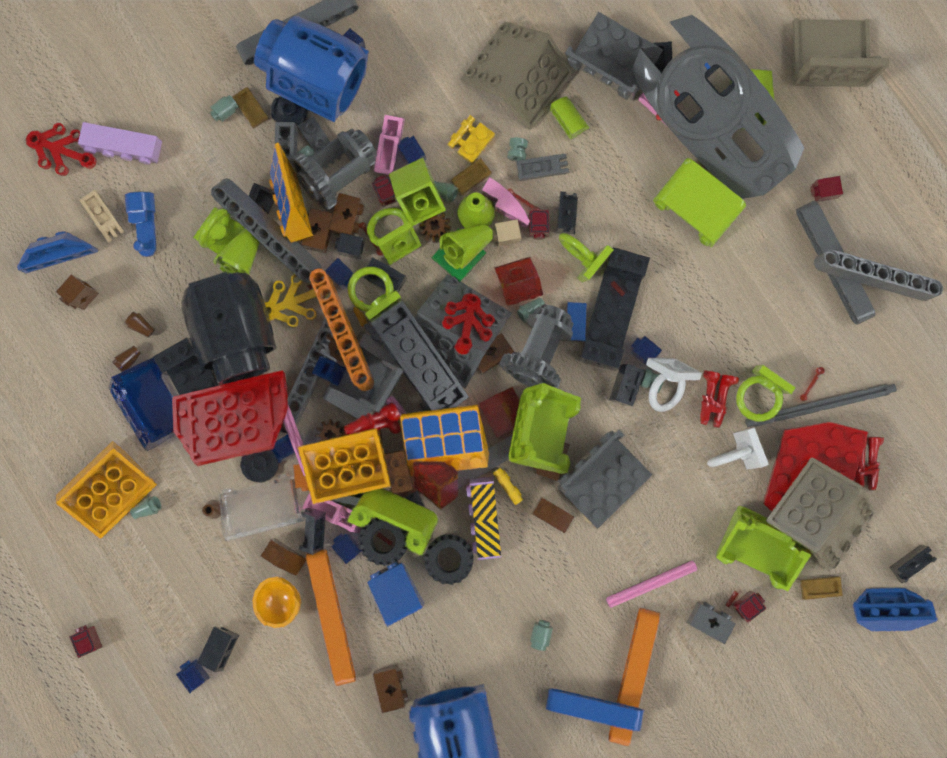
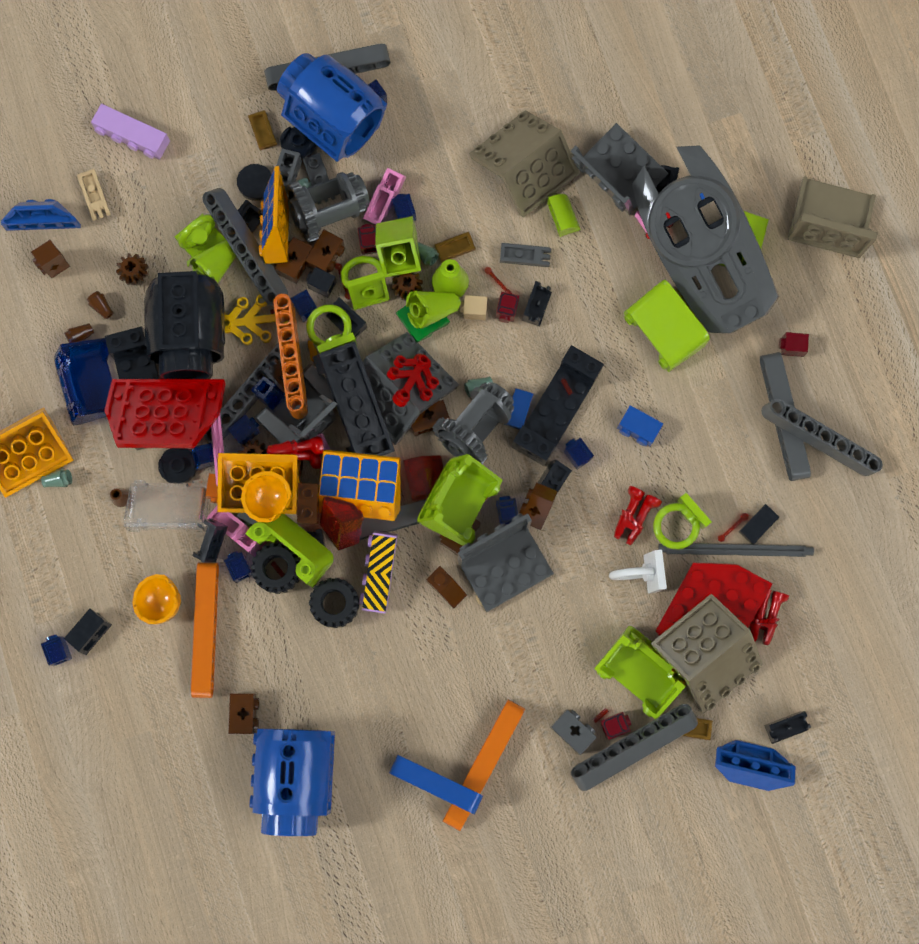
camera: 10 degrees right, 5 degrees down
(57, 148) = (69, 122): red plant -> none
(140, 211) = (131, 197): blue piece -> none
(167, 281) = (138, 271): none -> reddish brown gear
(223, 108) = (236, 124): sand green brick -> none
(256, 161) = (253, 181): none -> black tile
(283, 557) = (175, 559): reddish brown slope -> none
(315, 412) = (244, 429): none -> clear blue brick
(357, 479) = (266, 496): none -> light orange cylinder
(395, 593) = (273, 621): blue slope -> none
(475, 143) = (468, 216): yellow plate -> none
(504, 480) = (408, 542): yellow plate -> none
(505, 202) = (480, 278): bright pink slope -> none
(517, 149) = (505, 232): sand green wheel -> none
(518, 281) = (473, 356): clear red slope -> none
(541, 635) = (404, 700): sand green brick -> none
(589, 259) = (545, 351): lime tile -> none
(591, 425) = (506, 509): none -> clear blue brick
(621, 413) = (539, 504): none -> reddish brown brick
(648, 379) = (581, 485): sand green wheel -> none
(651, 584) = (525, 679): bright pink axle -> none
(674, 371) = (599, 478): white tile -> none
(698, 309) = (639, 426): none -> blue brick
(774, 623) = (634, 747): none -> dark grey beam
(836, 374) = (759, 524): none -> black tile

